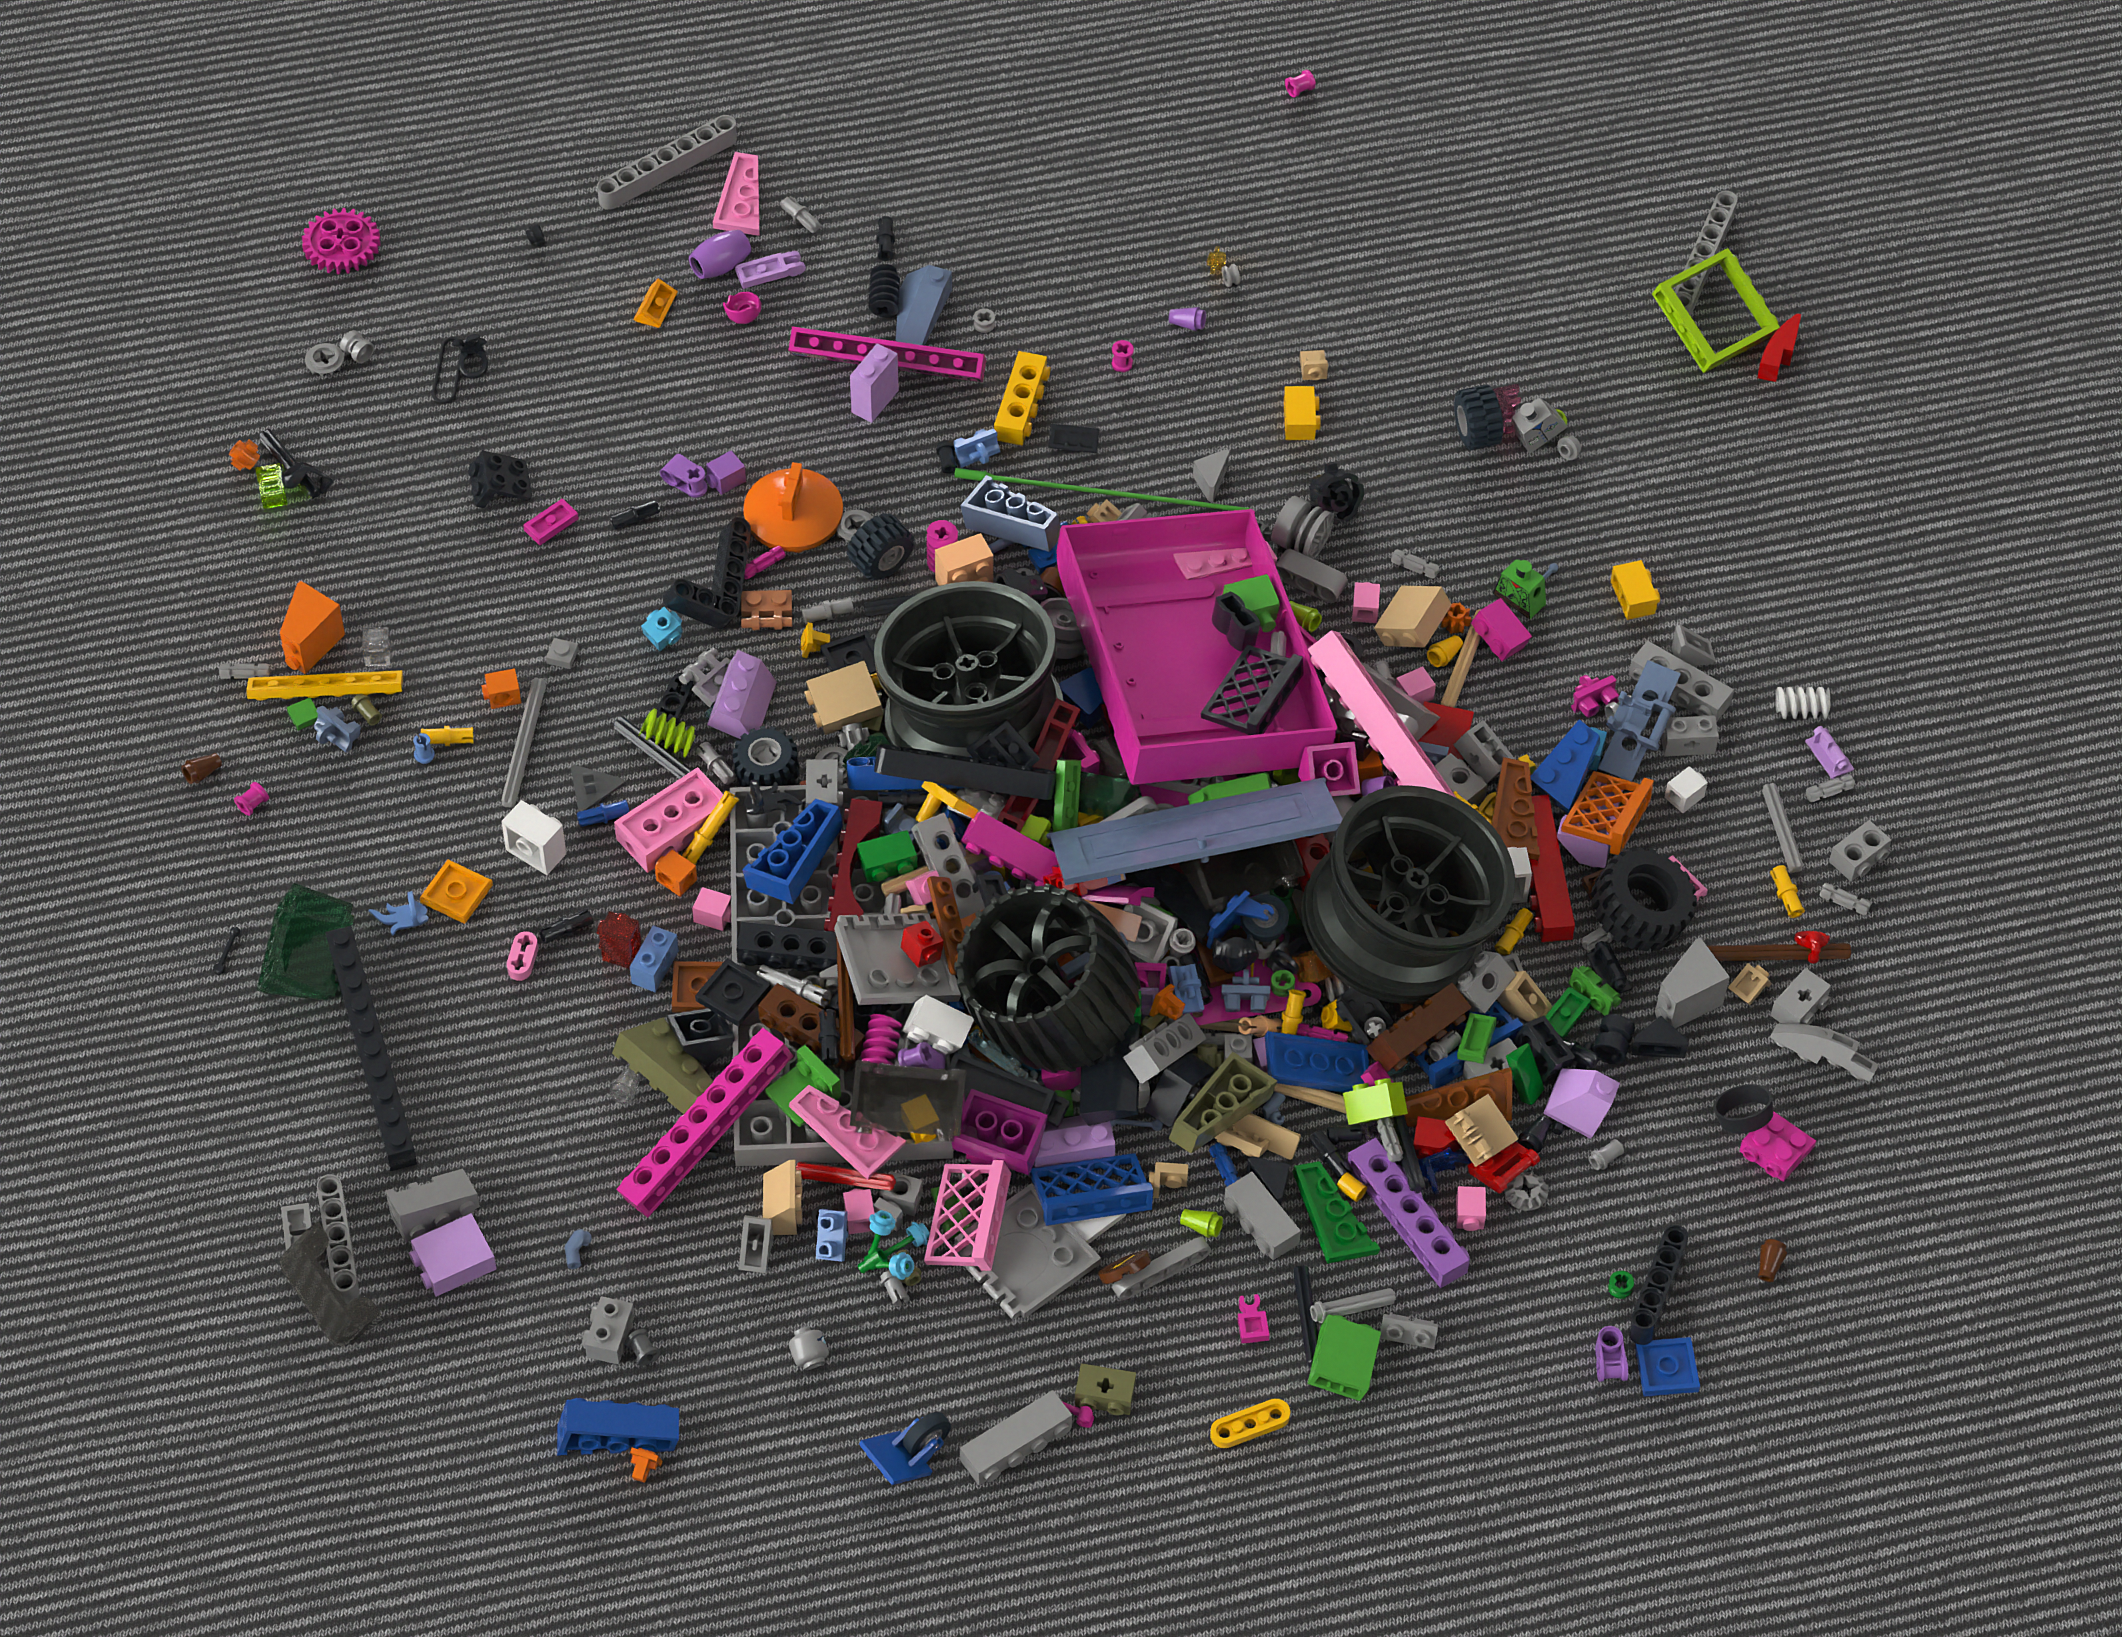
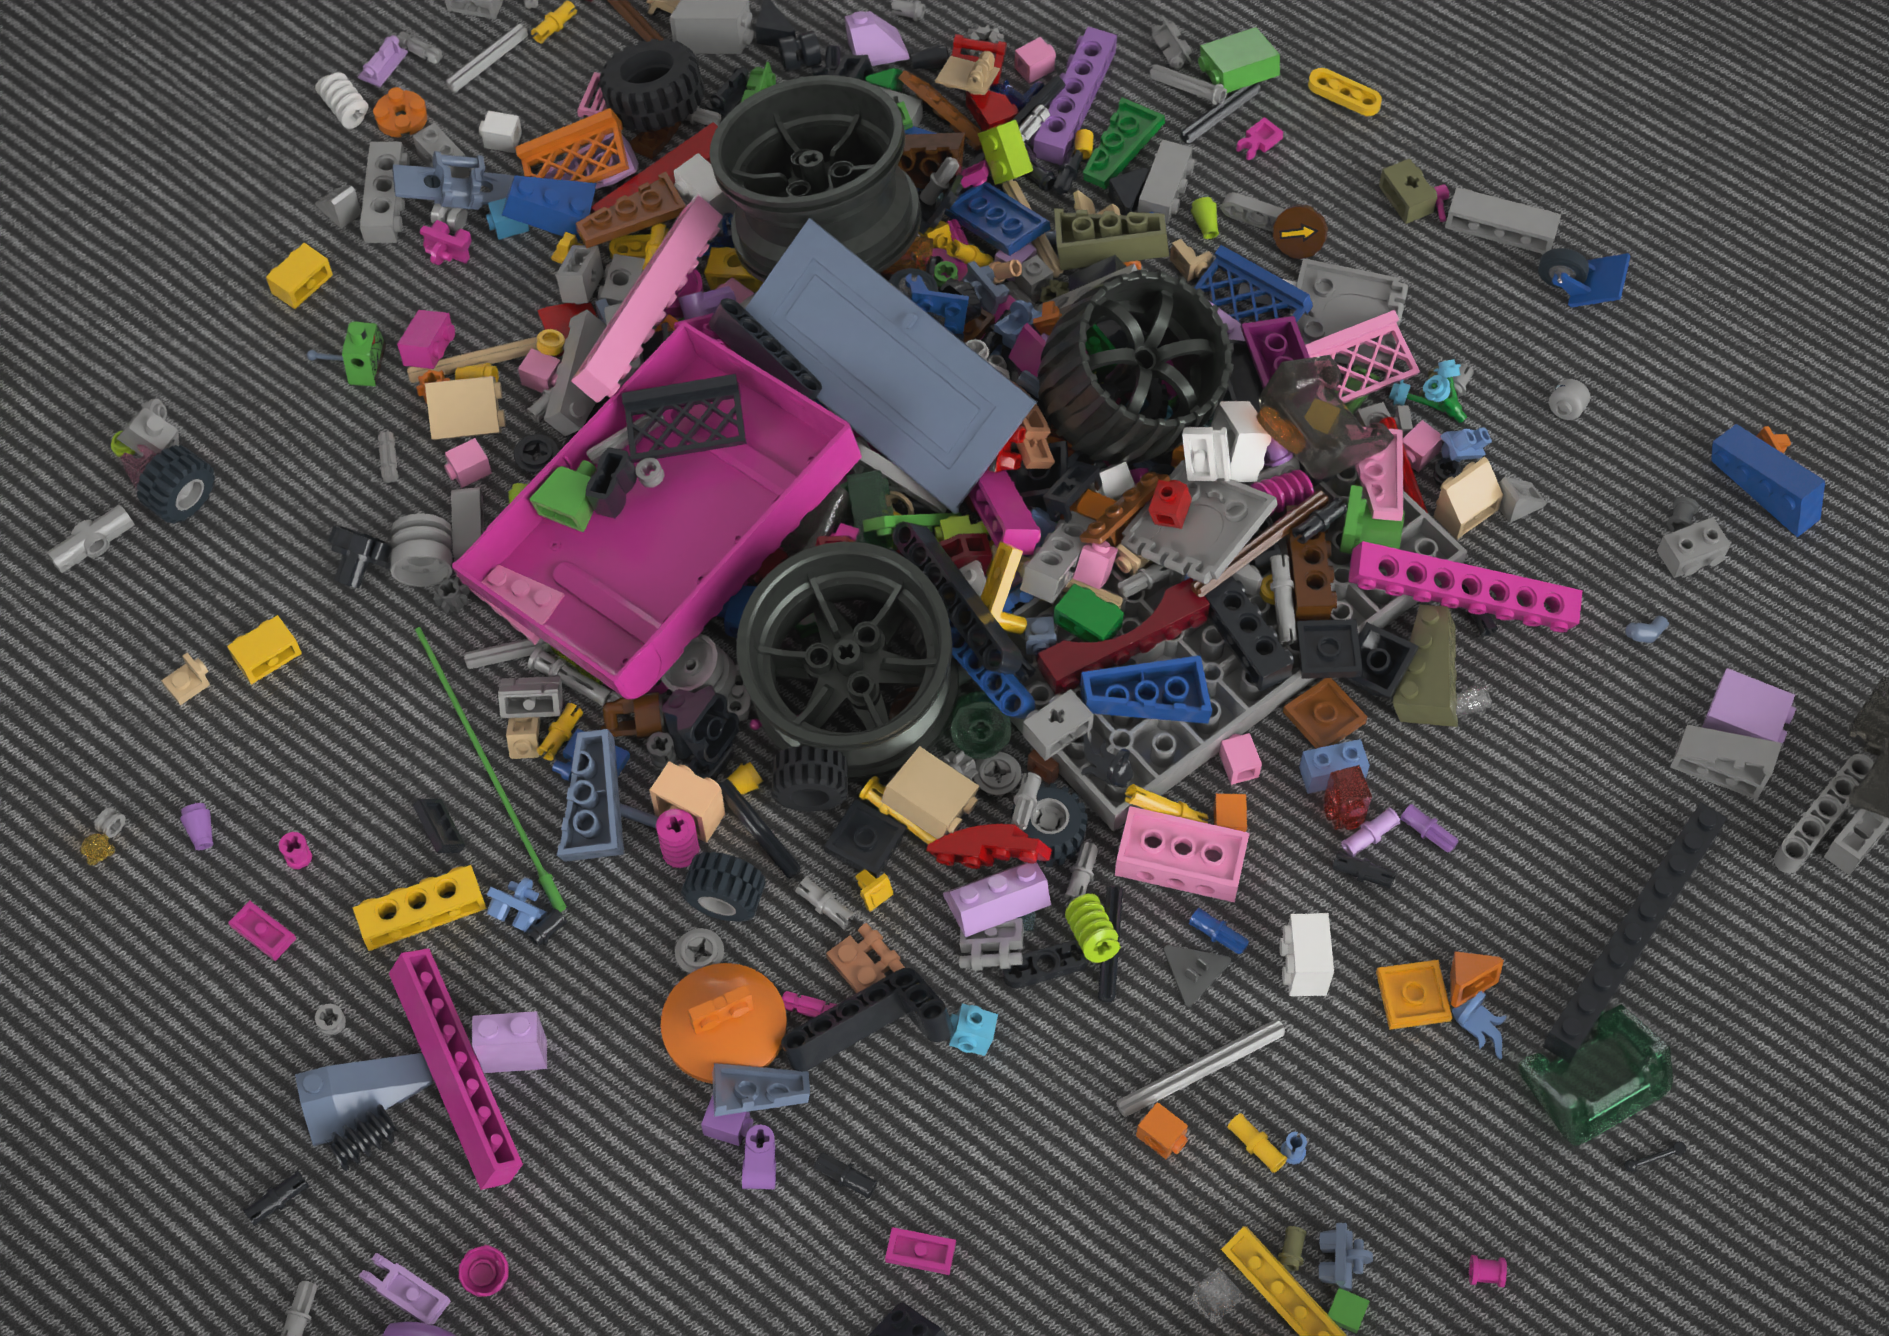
camera: 125 degrees left, 5 degrees up
(435, 924) = (1472, 974): none -> orange slope
(528, 957) = (1427, 892): bright pink beam -> none
(558, 988) = (1429, 828): none -> medium lavender axle
(562, 653) = (1069, 1115): light grey plate -> none
(588, 950) = (1370, 832): none -> lavender pin
(729, 491) = (756, 1088): none -> sand blue wing
(770, 708) = (984, 843): none -> red slope
(784, 736) = (1026, 799): none -> light grey axle
(914, 1040) = (1281, 430): none -> clear orange tile
(934, 979) = (1206, 453): none -> white plate
(1078, 315) = (262, 930): none -> dark pink plate
(1210, 472) = (399, 677): light grey slope -> none
(1229, 648) = (655, 476): none -> light grey bush
(1284, 767) = (761, 348): none -> black beam
(1430, 696) = (550, 342): none -> yellow tile
(1480, 359) = (90, 538): none -> light grey piece
(1769, 728) = (397, 101): none -> orange plate

